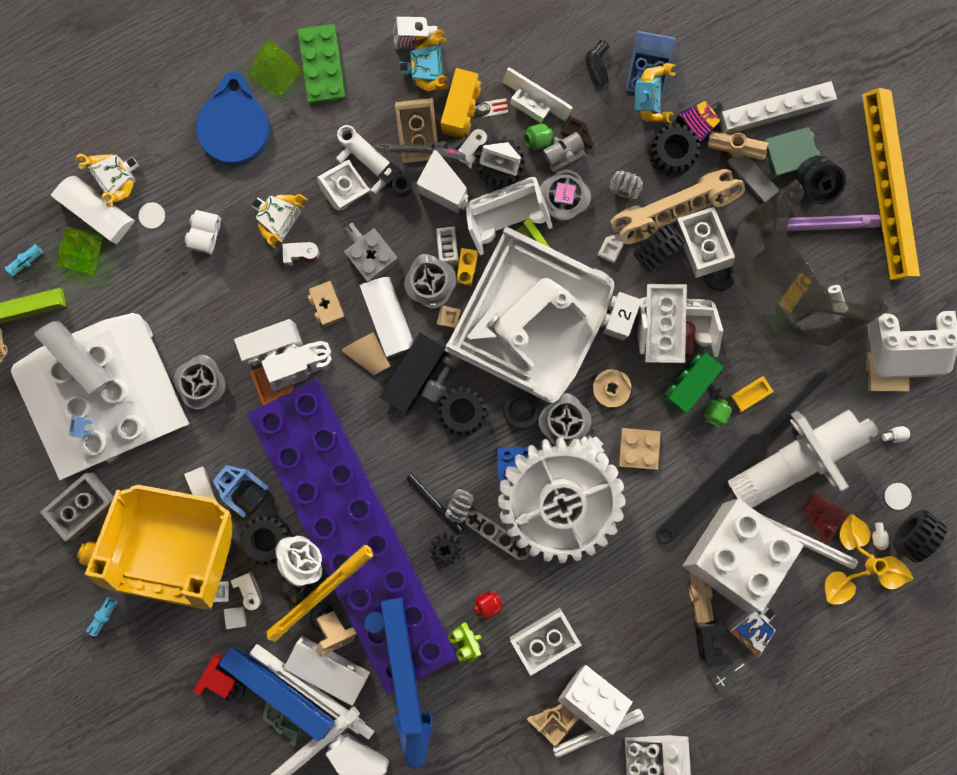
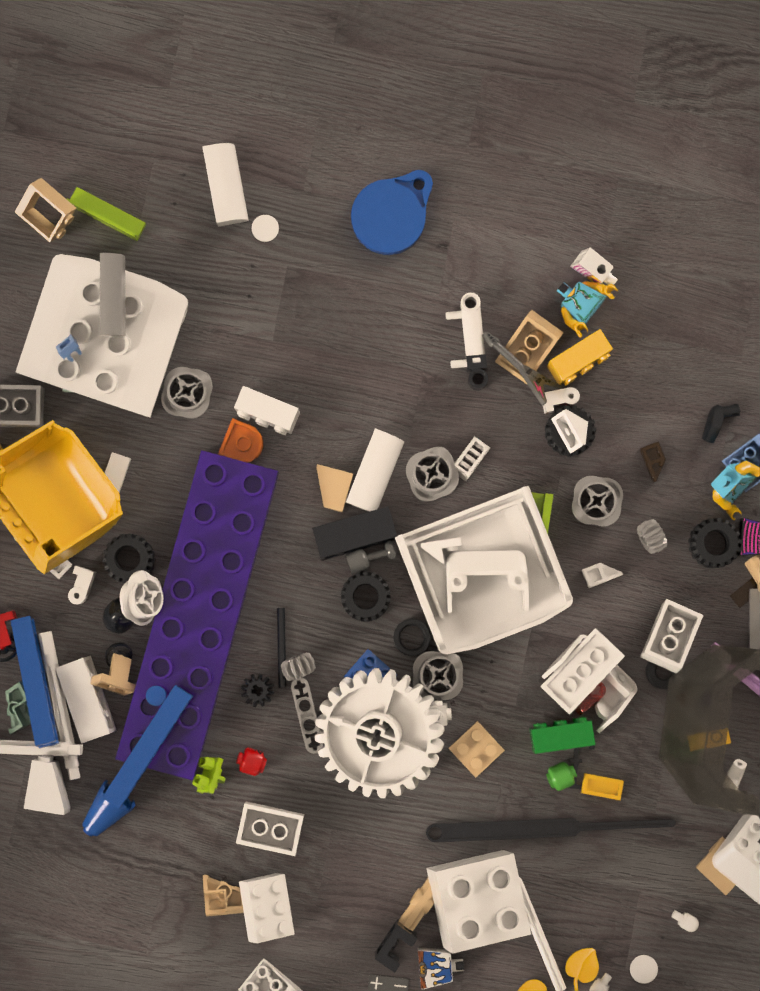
camera: 45 degrees right, 0 degrees up
(24, 260) = (137, 176): medium azure pin -> none
(80, 250) = (186, 208): clear neon green slope -> none
(111, 174) = (262, 171): torso -> none
(203, 232) = (292, 278): white brick -> none
(235, 617) = (52, 596): white tile -> none
(251, 498) = (146, 517): medium blue piece -> none
(274, 68) = (461, 199): clear neon green slope -> none
(277, 216) = (360, 317): torso -> none
(295, 364) = (271, 445): white brick -> none
(299, 251) = (353, 359): white leg -> none
(320, 593) = (134, 636): yellow piece -> none
(321, 64) = (502, 227): bright green plate -> none
(334, 312) = (345, 411): tan brick -> none
(342, 185) = (432, 338): white slope -> none
(364, 246) = (408, 401): light grey brick -> none
(442, 184) = (509, 408): white slope -> none
(448, 316) = (422, 513): tan plate -> none
(467, 266) = (471, 488): yellow leg -> none
(491, 108) = (603, 380): sticker -> none
(505, 208) = (541, 469): white windscreen -> none
(534, 99) = (641, 404): white bracket -> none
(538, 137) = (618, 436): bright green head -> none
(564, 151) = (627, 466): light grey pin -> none
(565, 193) = (596, 501): bright pink tile -> none
(591, 736) = (241, 933): white axle -> none
(616, 378) = (490, 674): tan plate -> none
(621, 316) = (554, 634): white brick -> none
(659, 247) = (631, 608): black tyre -> none
(706, 192) = (709, 599): tan piece -> none
(810, 453) = (602, 871): white piece -> none
(825, 516) = (572, 931): clear red slope -> none

